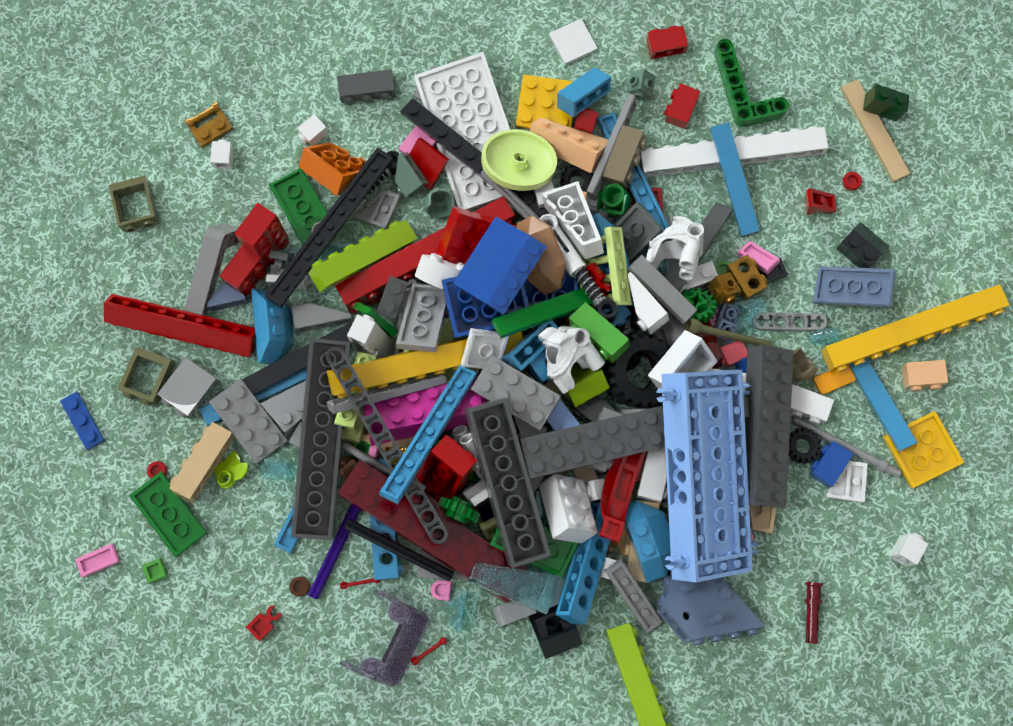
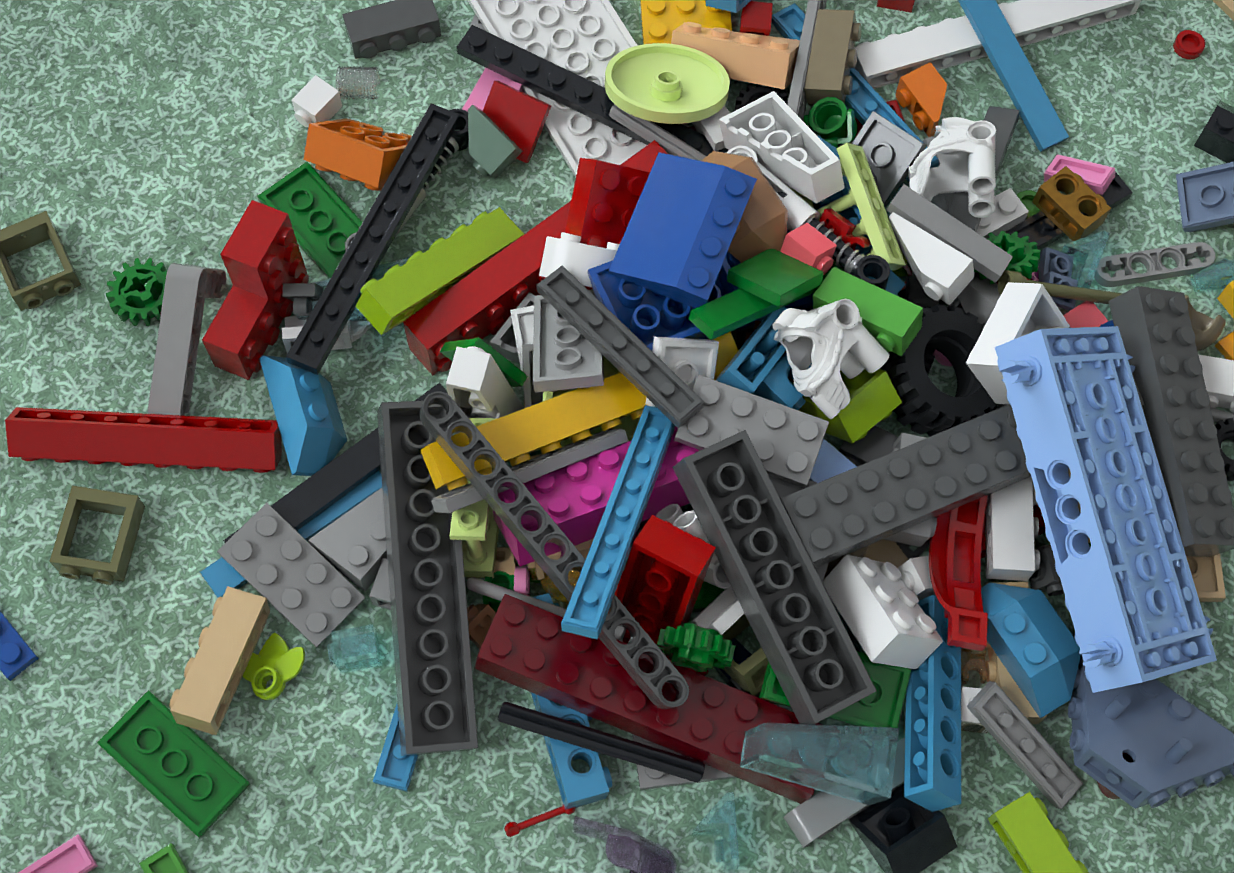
camera: 15 degrees left, 10 degrees down
(156, 467) = (137, 687): red tile -> none
(184, 235) = (126, 294): none -> green gear
(187, 388) = (173, 540): light grey panel -> none
(212, 129) = (145, 131): pearl gold plate -> none
(222, 154) = (172, 162): white brick -> none
(226, 297) = (216, 382): sand blue slope -> none
(299, 586) = (433, 846): reddish brown tile -> none
(313, 316) = (368, 385): light grey slope -> none
(332, 554) = (482, 776): dark purple axle -> none
(339, 121) = (358, 82): none -> clear piece
(380, 210) = (451, 204): light grey wing -> none
(392, 297) = (507, 319): dark grey brick -> none
(439, 202) = (548, 176): sand green hair -> none
(441, 590) = (687, 803): bright pink tile -> none
(449, 330) = (620, 346): none -> dark grey tile
(548, 303) = (775, 277): none -> green tile
(572, 289) = (810, 247): none -> coral brick
(677, 187) = (923, 96): none -> orange slope
(724, 288) = (1043, 224): pearl gold brick -> none
(819, 201) = (1148, 77): red slope -> none

